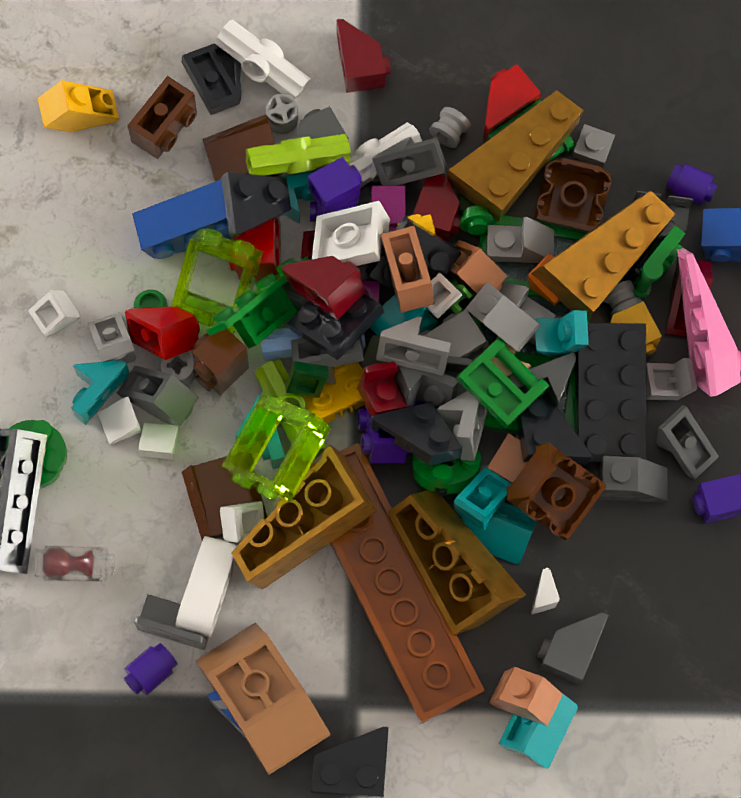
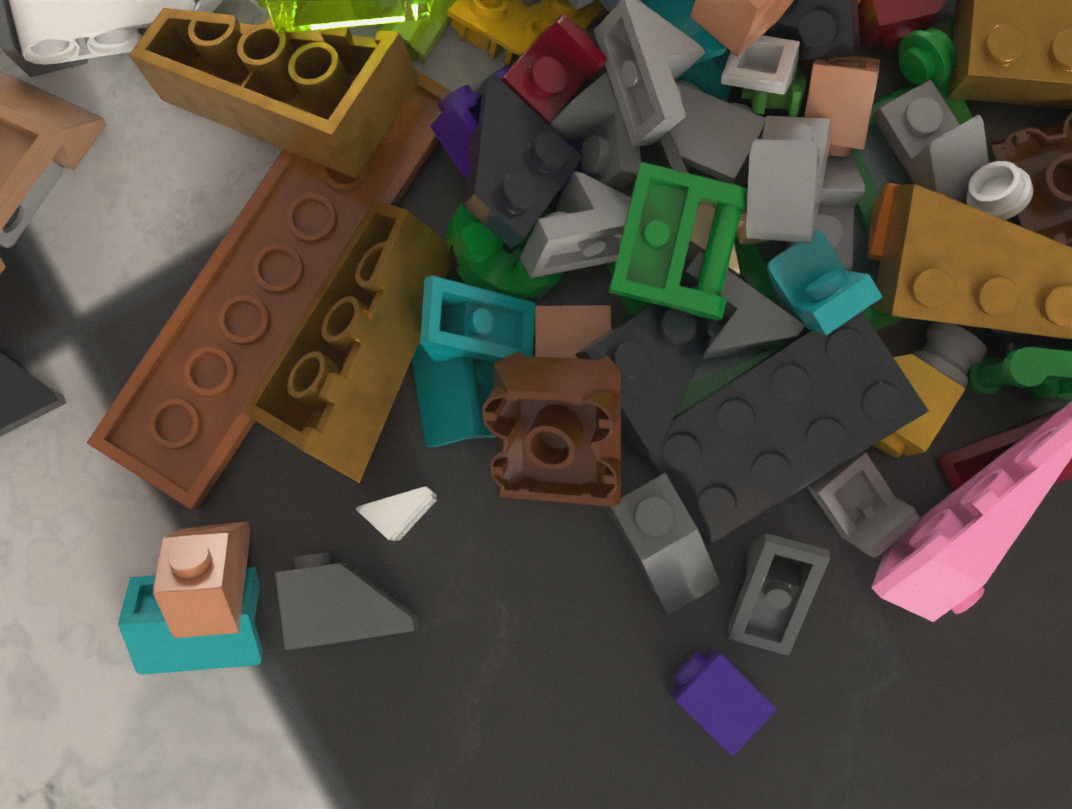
camera: 60 degrees right, 10 degrees up
(562, 230) = (1000, 189): none -> white plate

